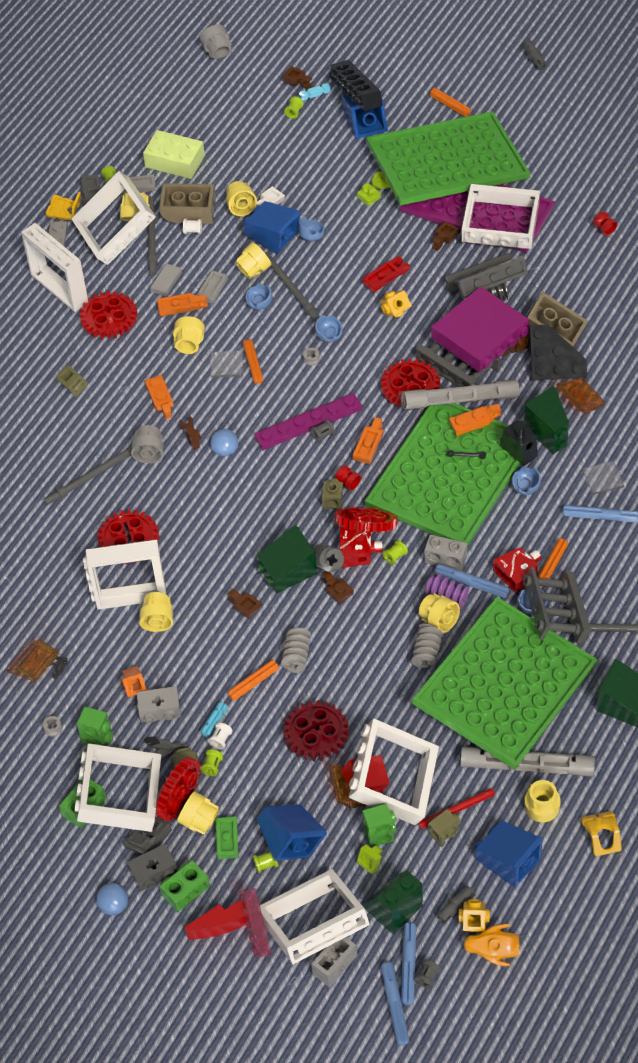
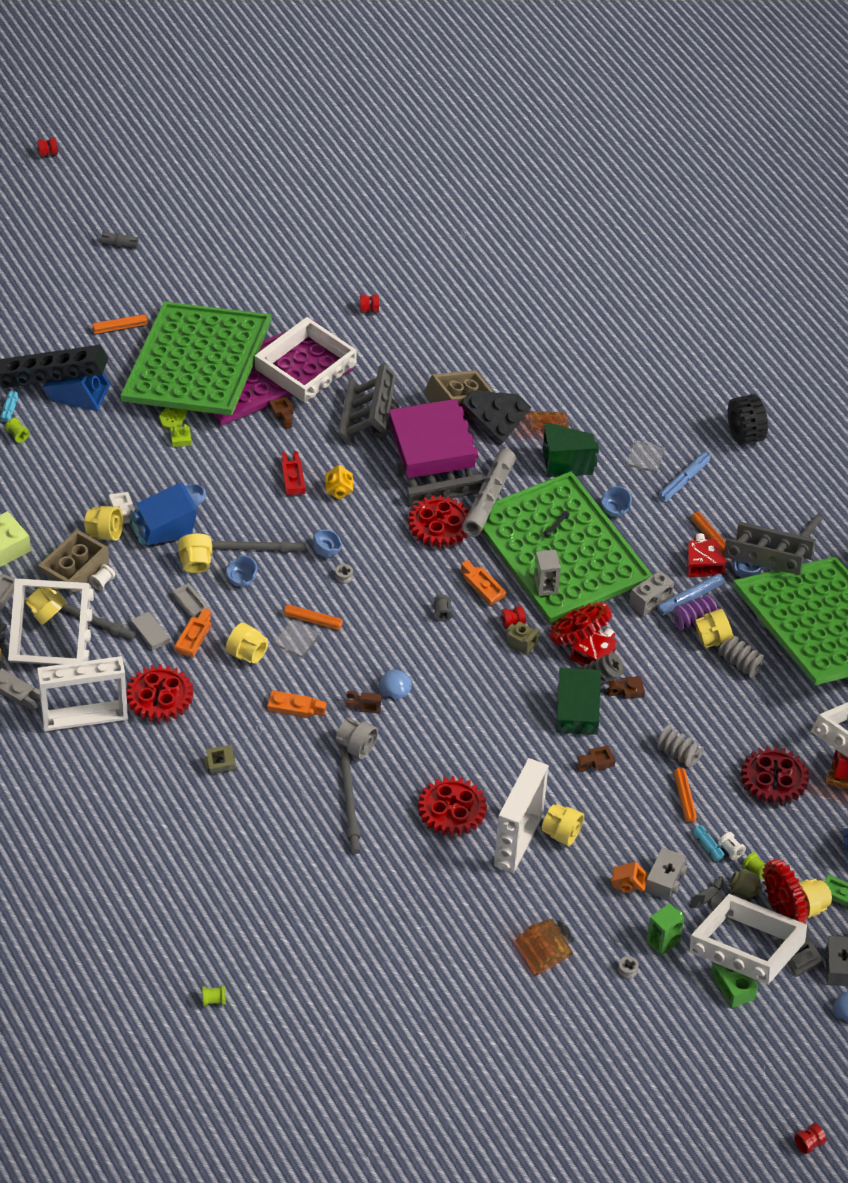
camera: 65 degrees left, 5 degrees down
(304, 422) = (419, 615): magenta plate -> none
(395, 552) = (622, 627): lime bush -> none
(396, 469) = (547, 572): none -> light grey brick
(474, 419) = (522, 499): orange hinge -> none
(519, 442) = (578, 479): black torso -> none

